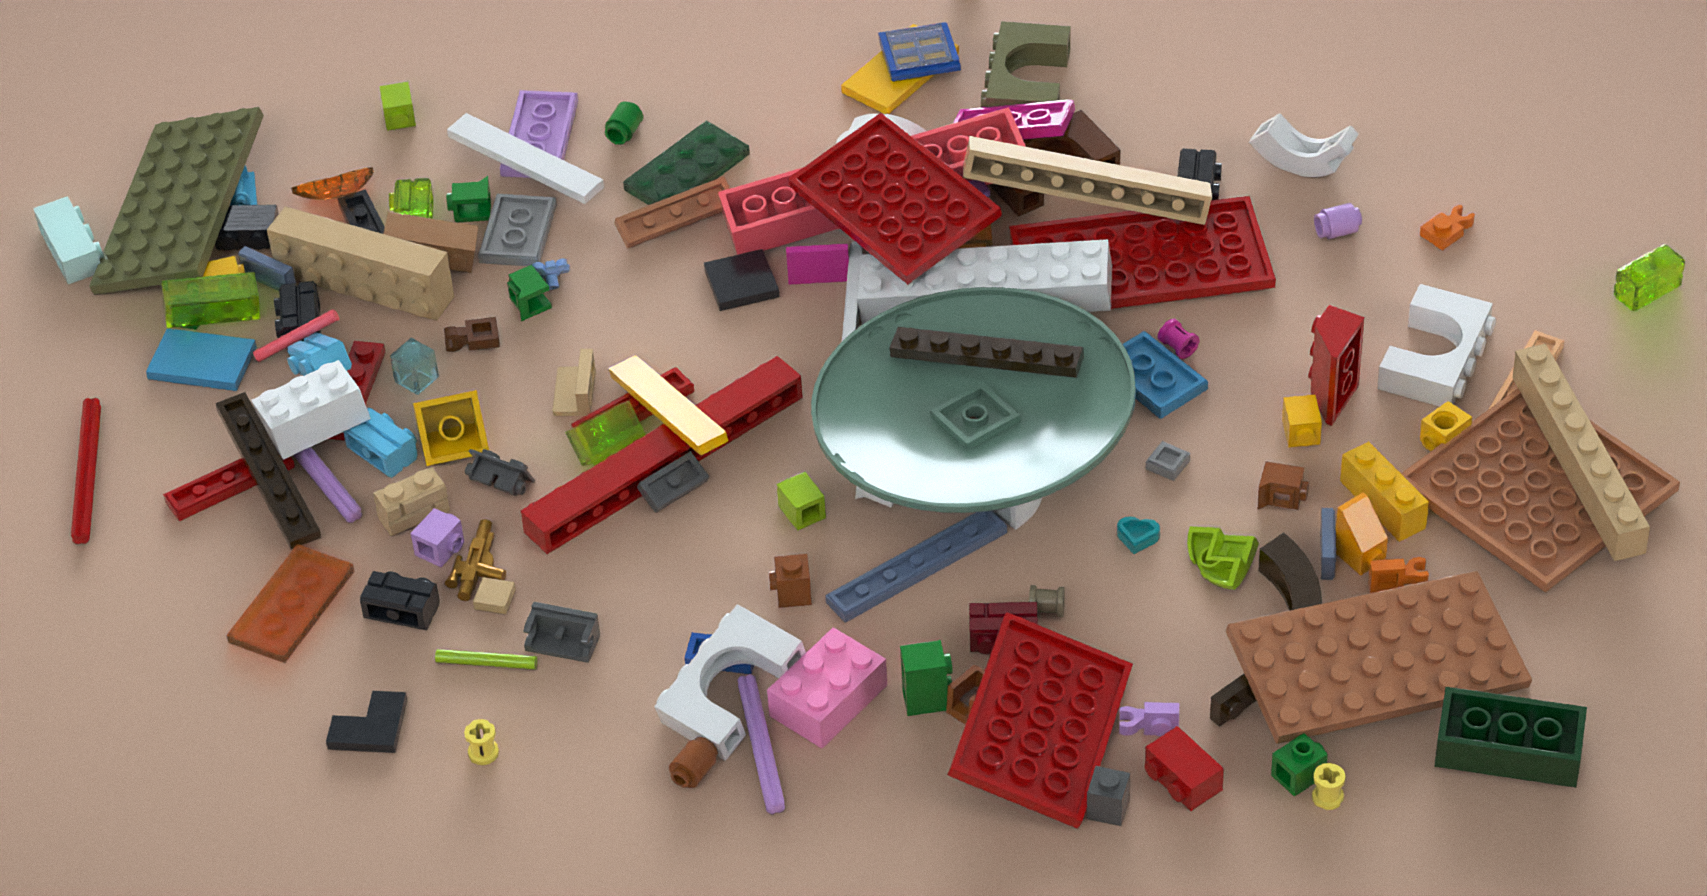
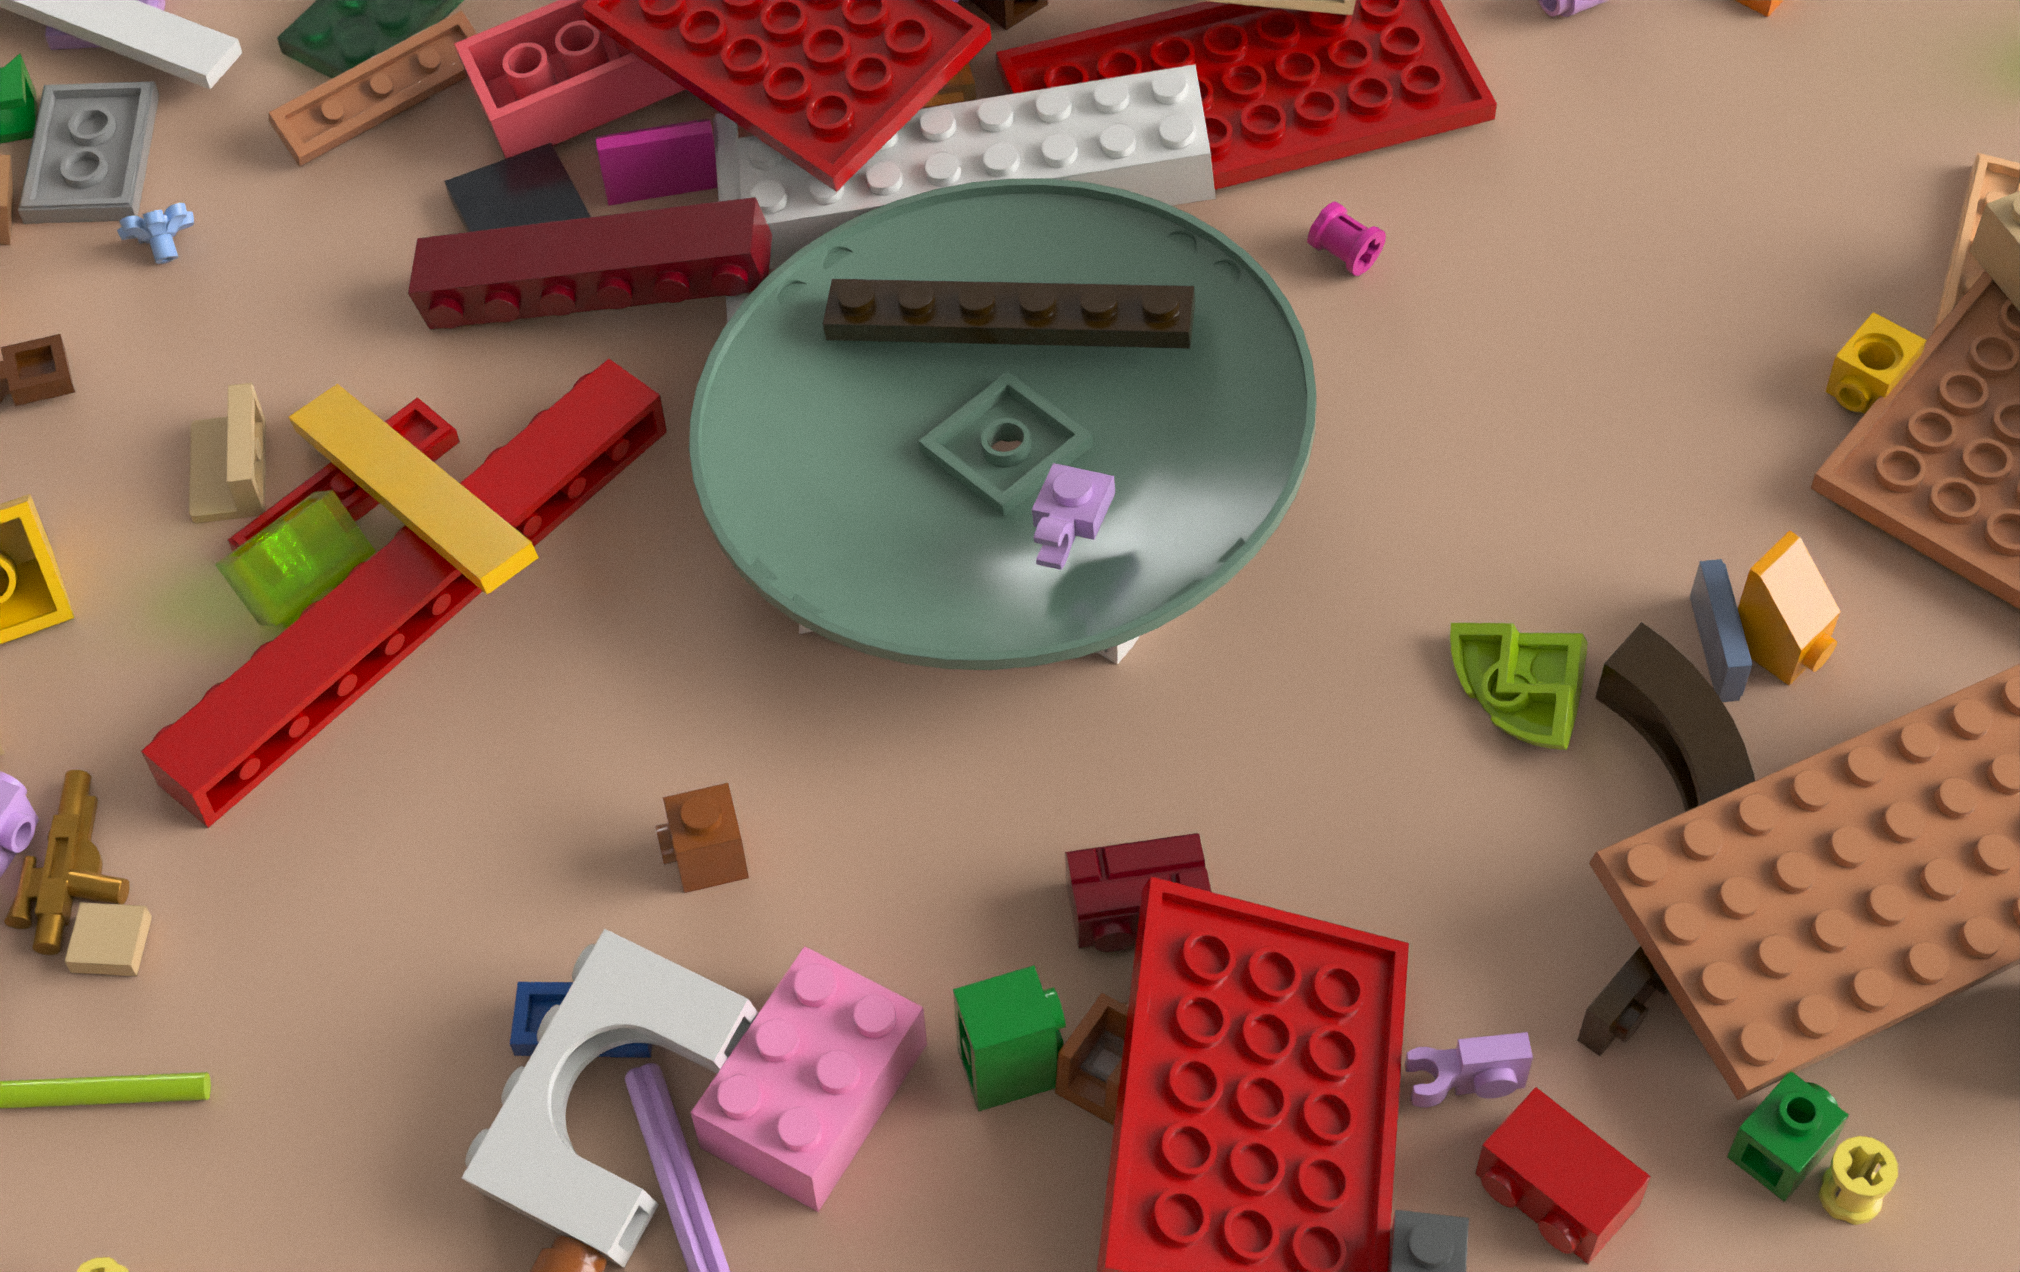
camera: 10 degrees left, 10 degrees up
(510, 474) = (118, 668): dark grey hinge -> none
(527, 291) = (119, 276): green window -> none
(561, 632) = (252, 1012): dark grey hinge -> none
(673, 482) = (440, 645): dark grey plate -> none
(774, 309) = (591, 264): none -> dark red brick
(801, 501) = (696, 656): lime brick -> none
(915, 564) = (929, 776): sand blue tile -> none
(997, 443) = (1068, 507): none -> lavender plate
(1048, 600) = (1214, 818): dark tan bush -> none
(1138, 533) = (1352, 647): teal tile -> none
(1161, 377) = (1343, 319): dark azure tile -> none
(1168, 460) = (1377, 487): light grey tile -> none
(1282, 486) = (1607, 519): dark orange window -> none
(1301, 420) = (1610, 379): yellow brick -> none
(1335, 360) = (1654, 256): red slope -> none
(1393, 497) = (1781, 488): yellow brick -> none
(1394, 573) = (1858, 683): orange plate -> none
(1442, 376) = (1834, 265): white arch -> none

